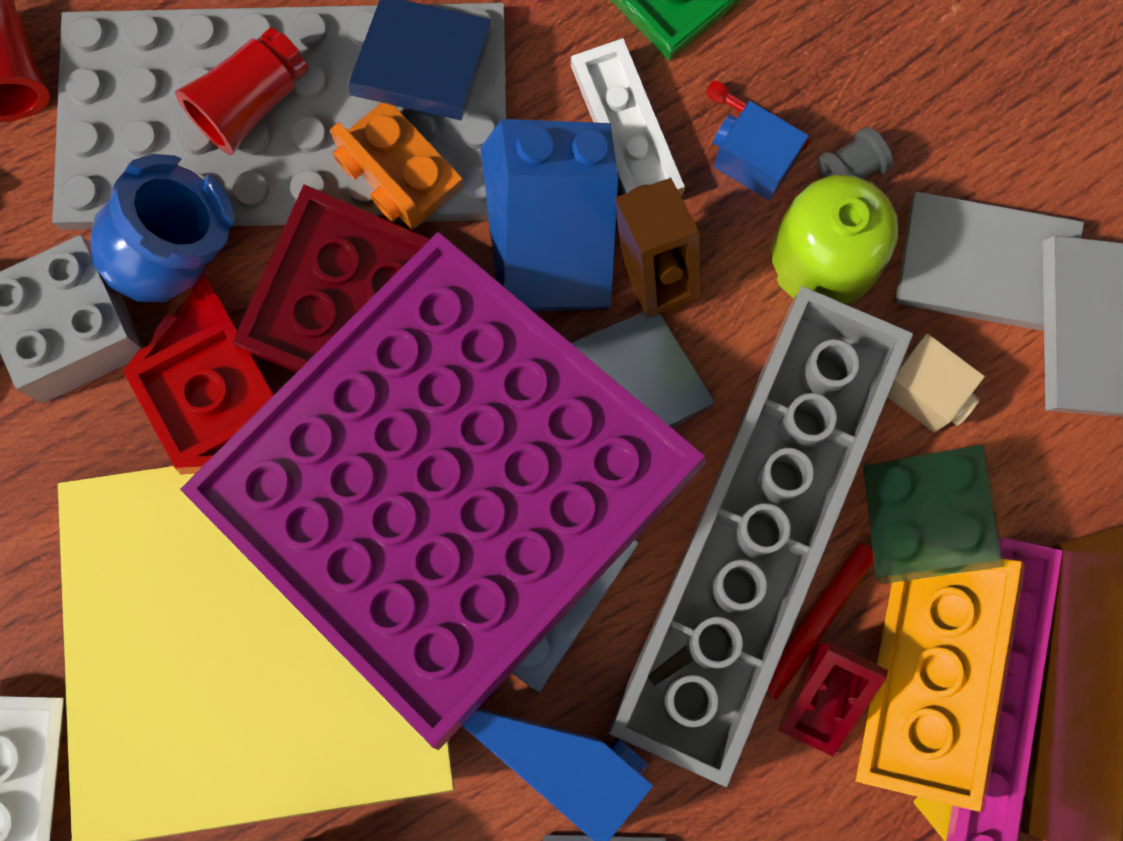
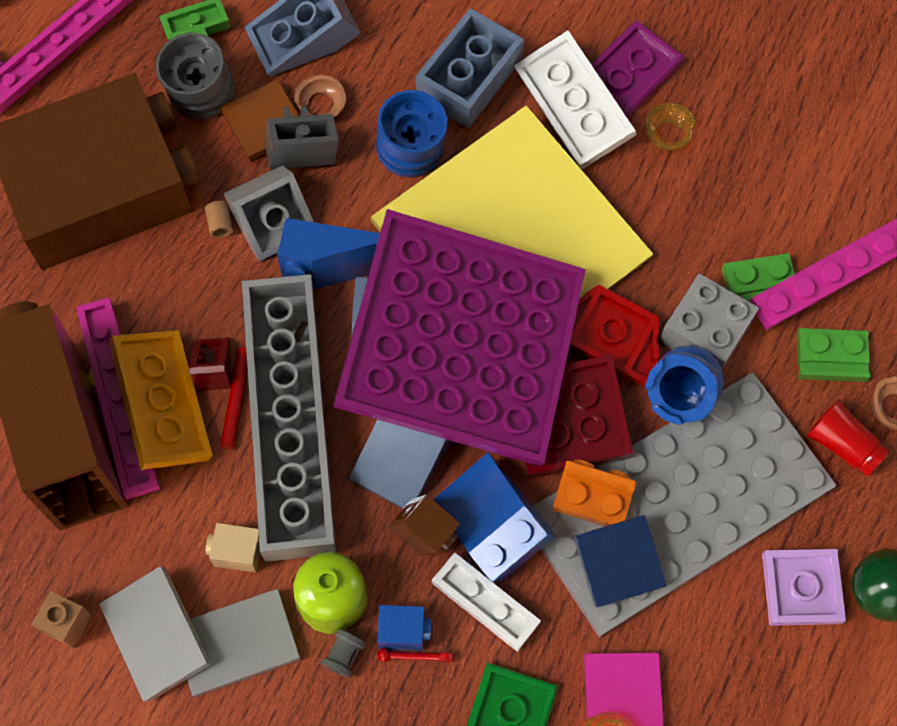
camera: 150 degrees right, 10 degrees down
(243, 89) = (700, 483): red plant -> none
(932, 515) = (202, 472): clear green plate -> none

